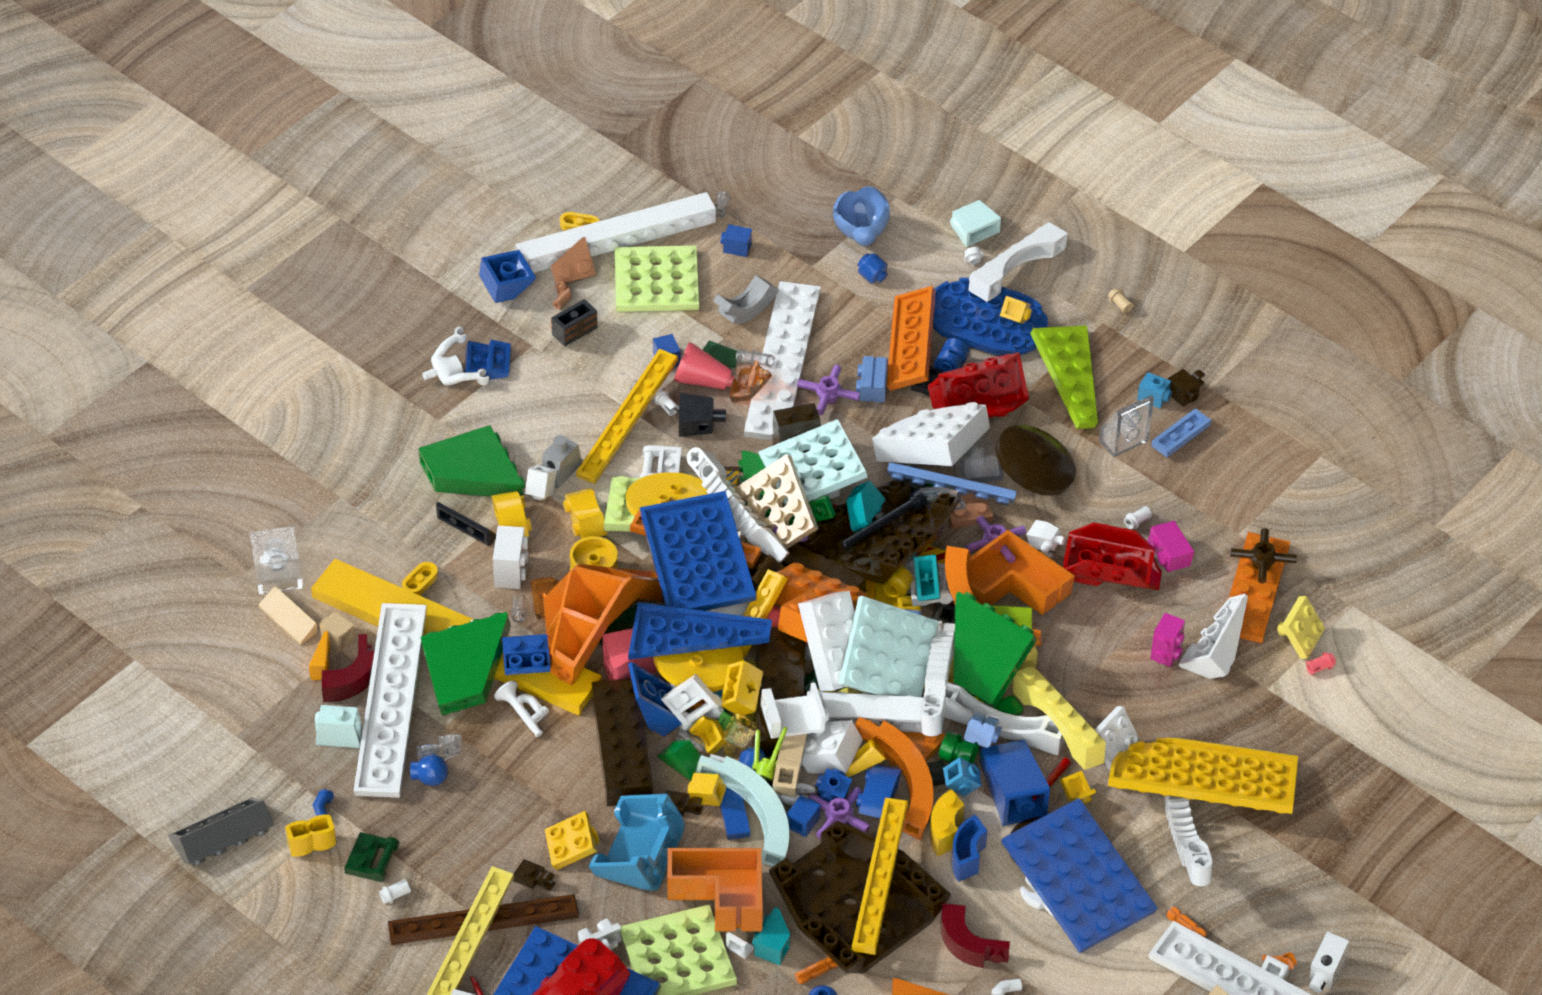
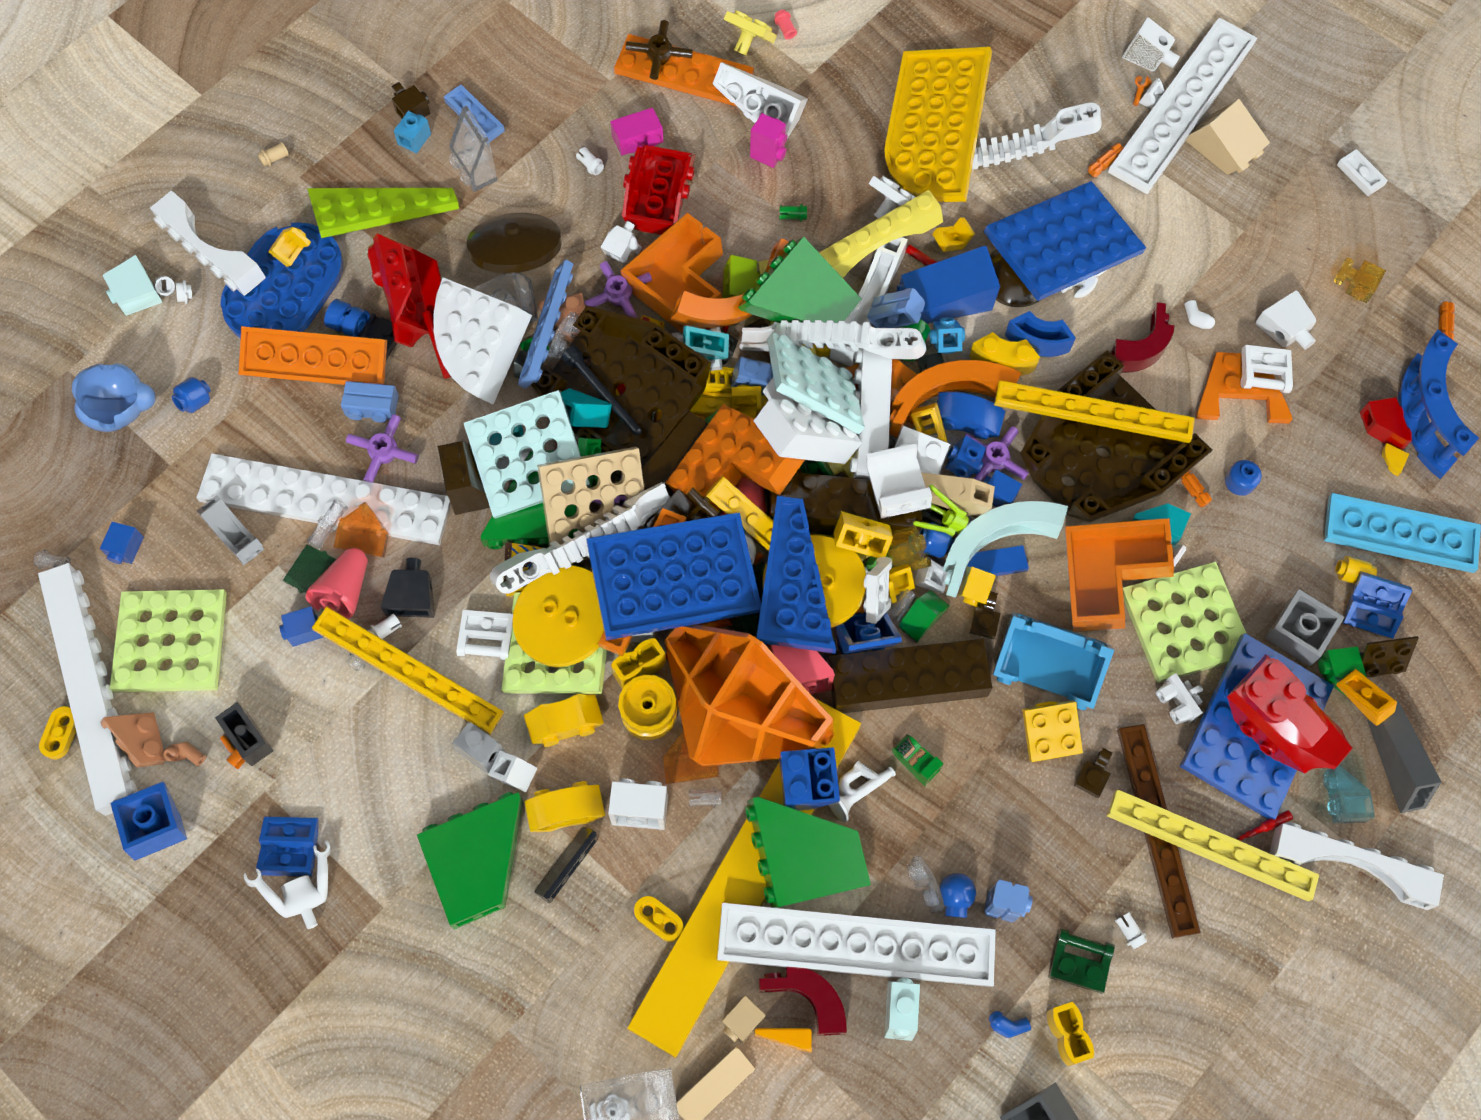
camera: 90 degrees left, 20 degrees up
(420, 794) = (1008, 901): none -> medium blue brick
(547, 748) = (917, 759): none -> green leg
(631, 554) = (644, 660): none -> yellow brick
(976, 240) = (170, 286): none -> white hinge
(1096, 670) = (793, 212): none -> green pin

